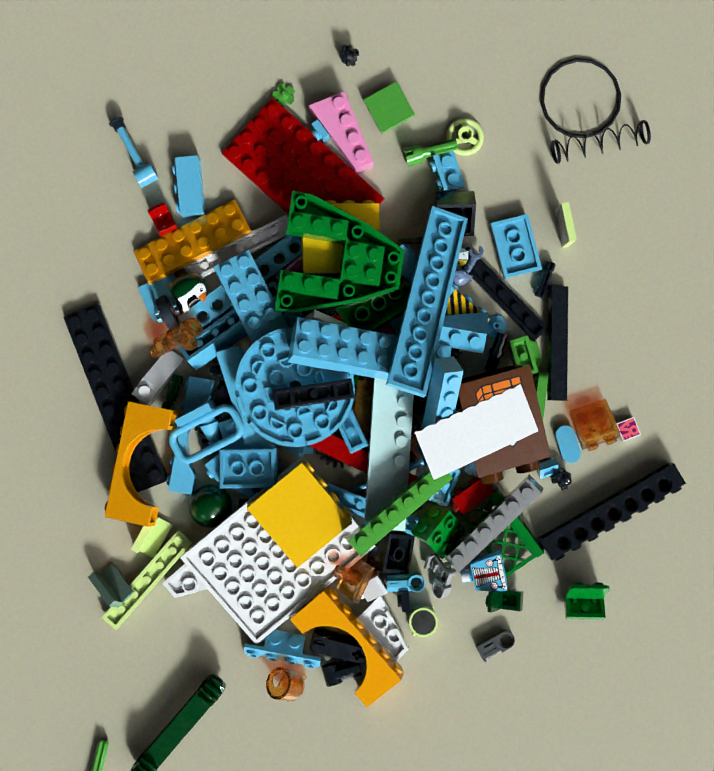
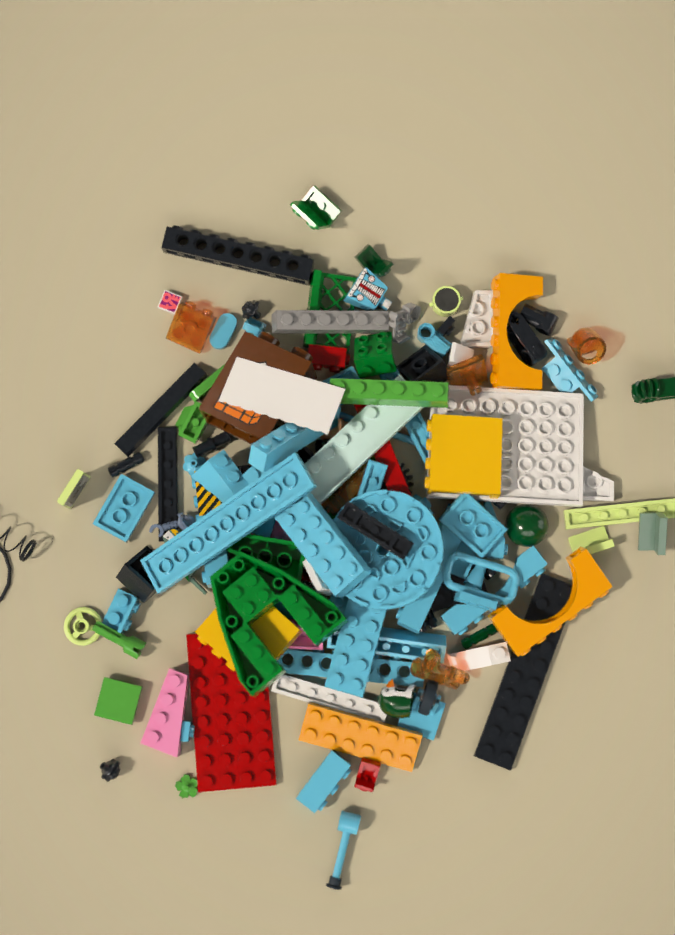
camera: 135 degrees left, 5 degrees down
(492, 645) = (411, 238): dark grey piece -> none

